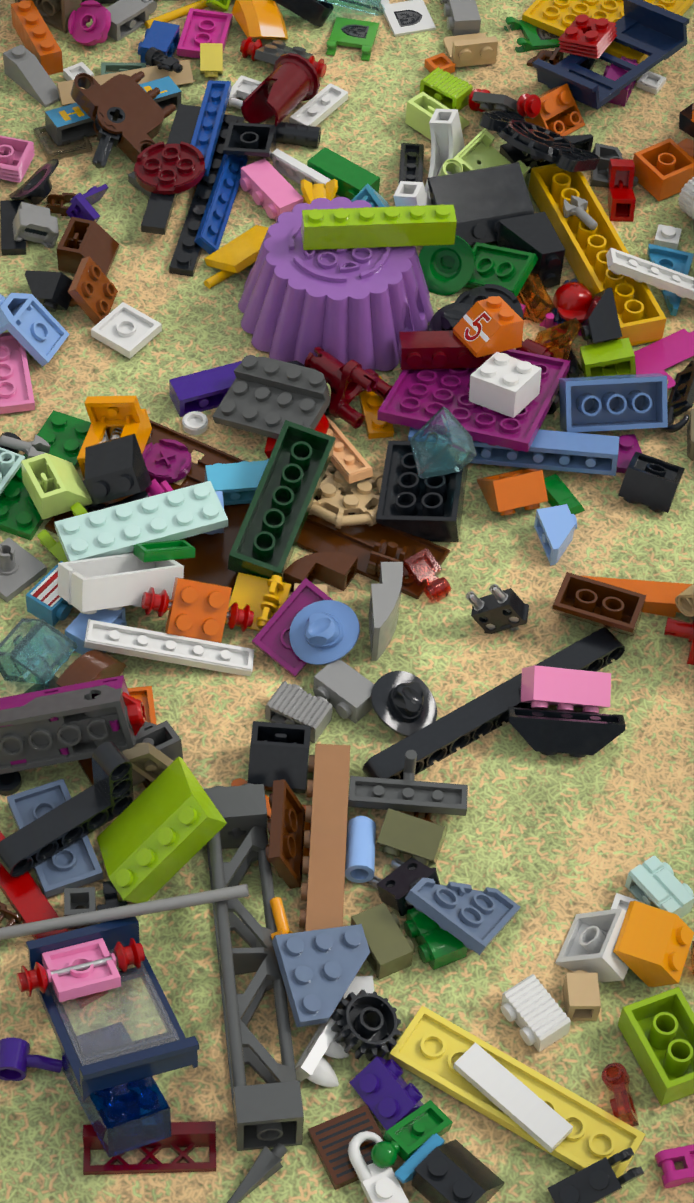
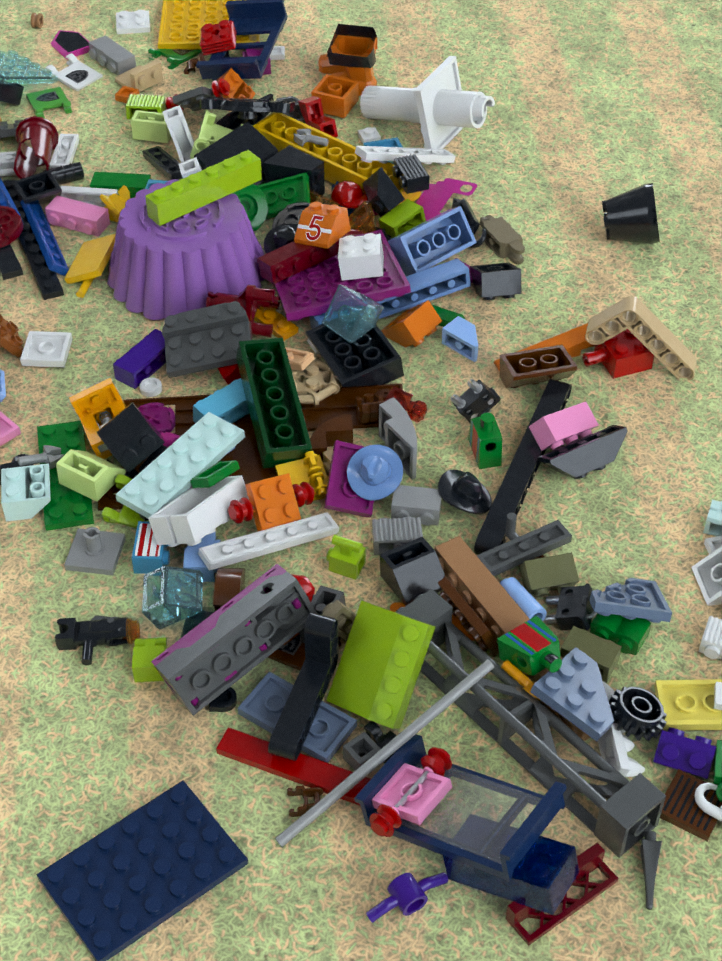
camera: 30 degrees left, 5 degrees down
(228, 706) = (346, 557): none -> lime brick
(310, 898) = (531, 647): none -> green torso
(477, 651) = (482, 432): none -> green torso
(650, 310) = (410, 174): none -> black brick

